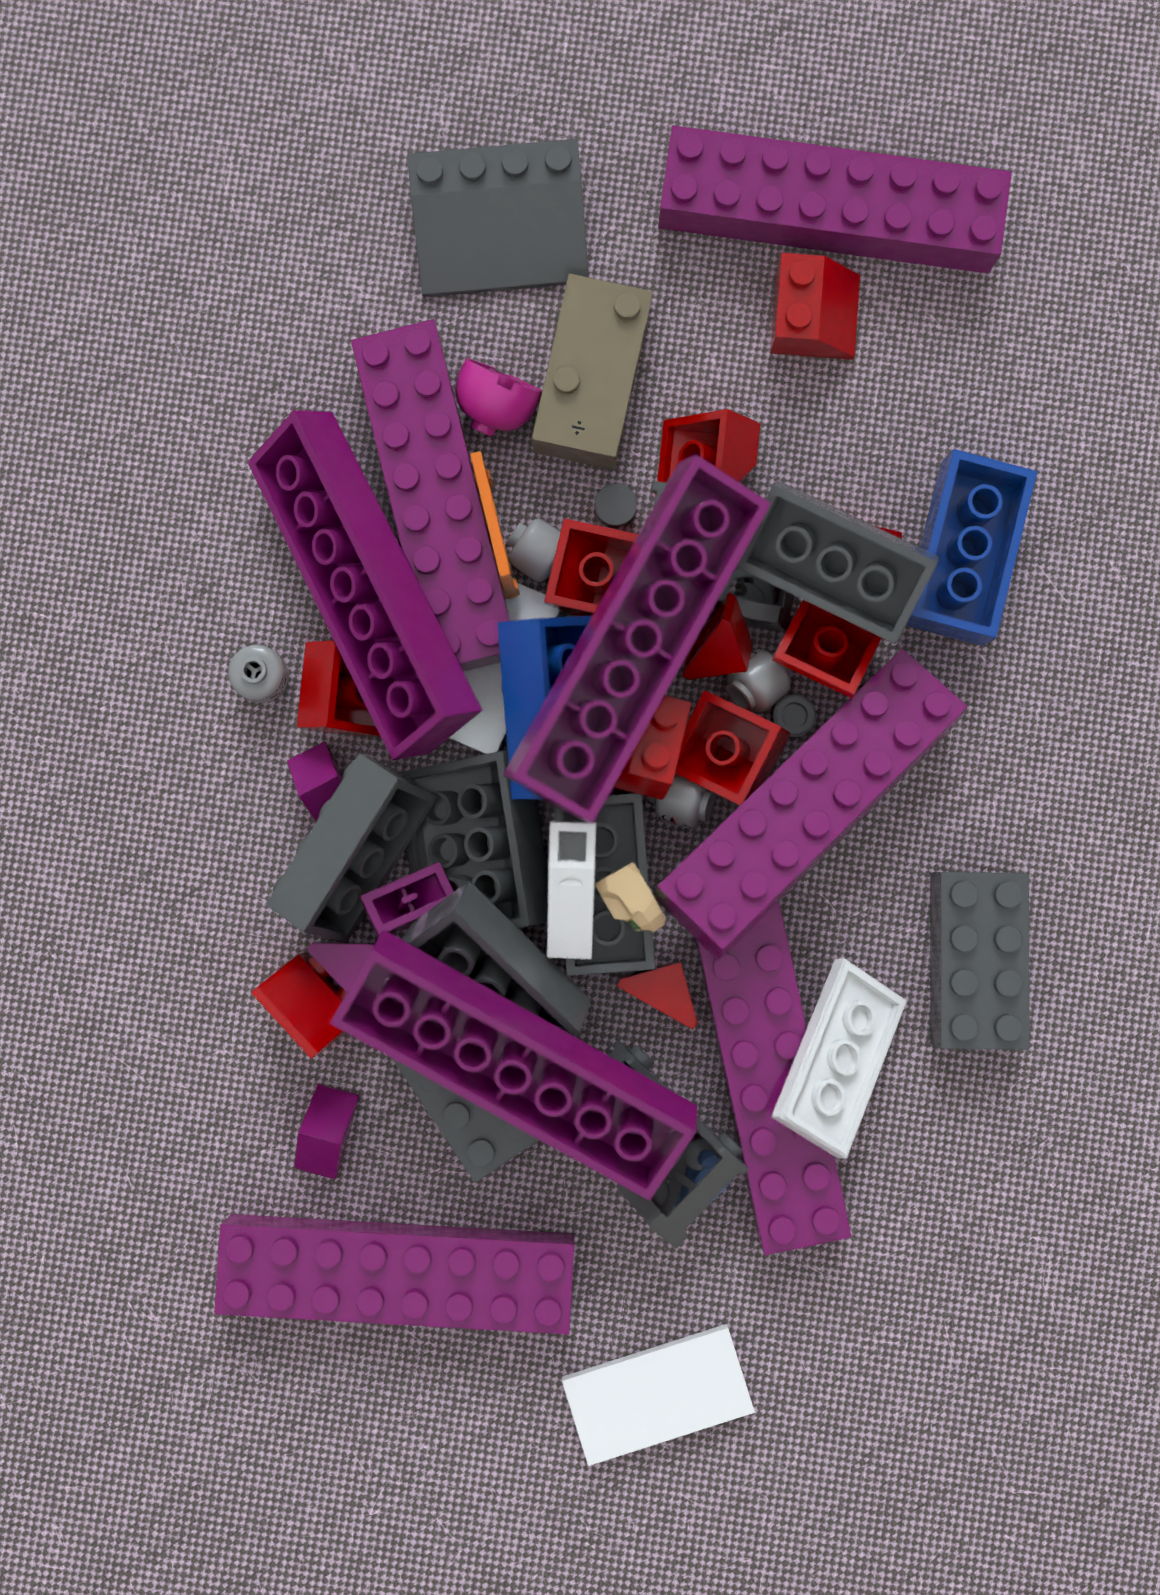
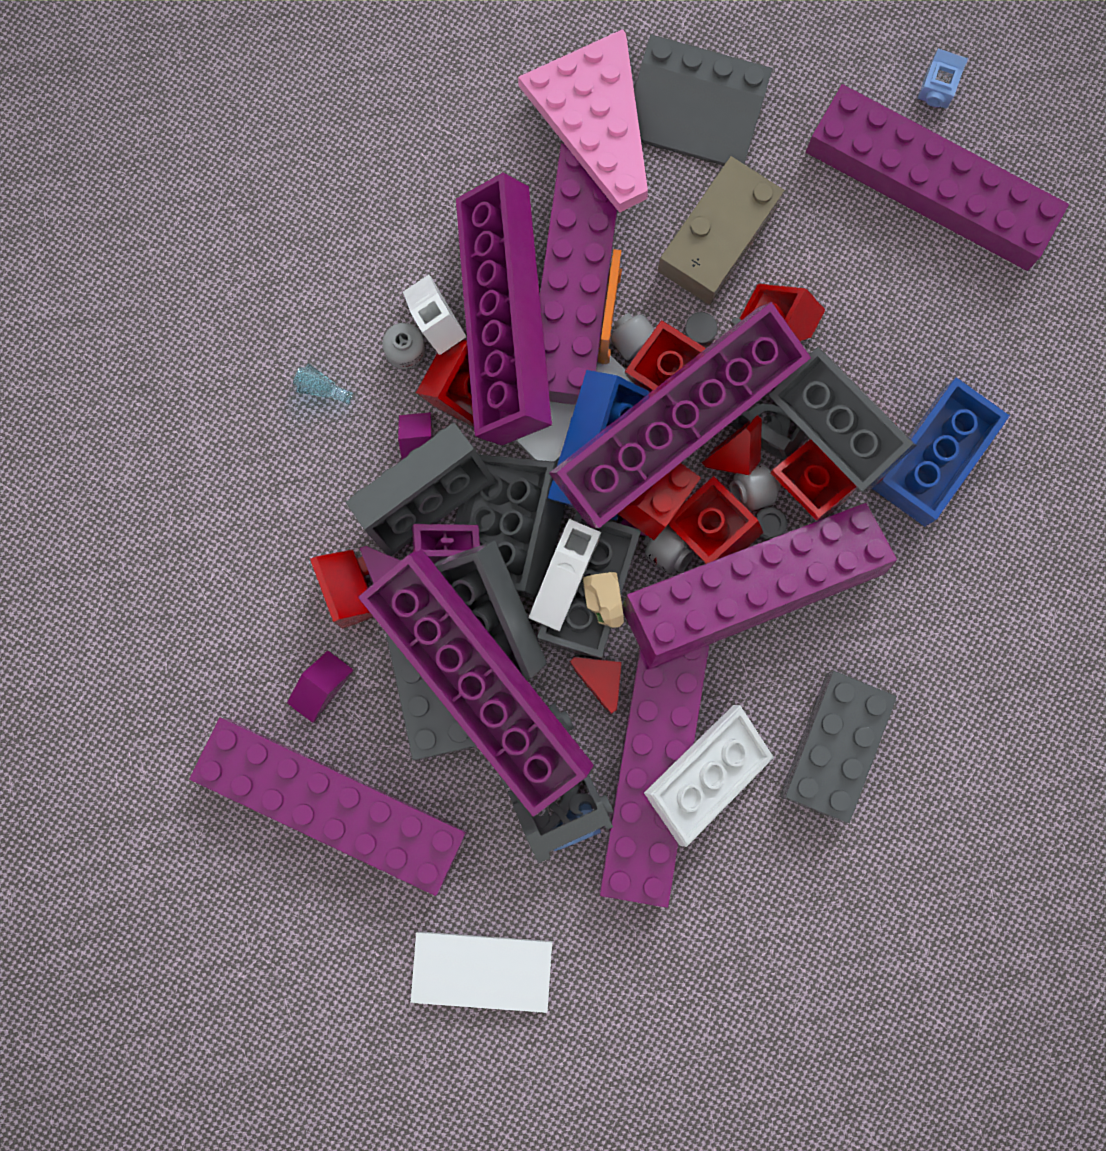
camera: 15 degrees right, 5 degrees down
(167, 762) = (313, 382): none -> clear light blue cone
(278, 622) = (433, 315): none -> white slope
(374, 283) = (594, 113): none -> bright pink wing
(494, 398) = (646, 226): dark pink cylinder -> none
(793, 68) = (942, 78): none -> light blue window
(814, 307) = (895, 246): red slope -> none

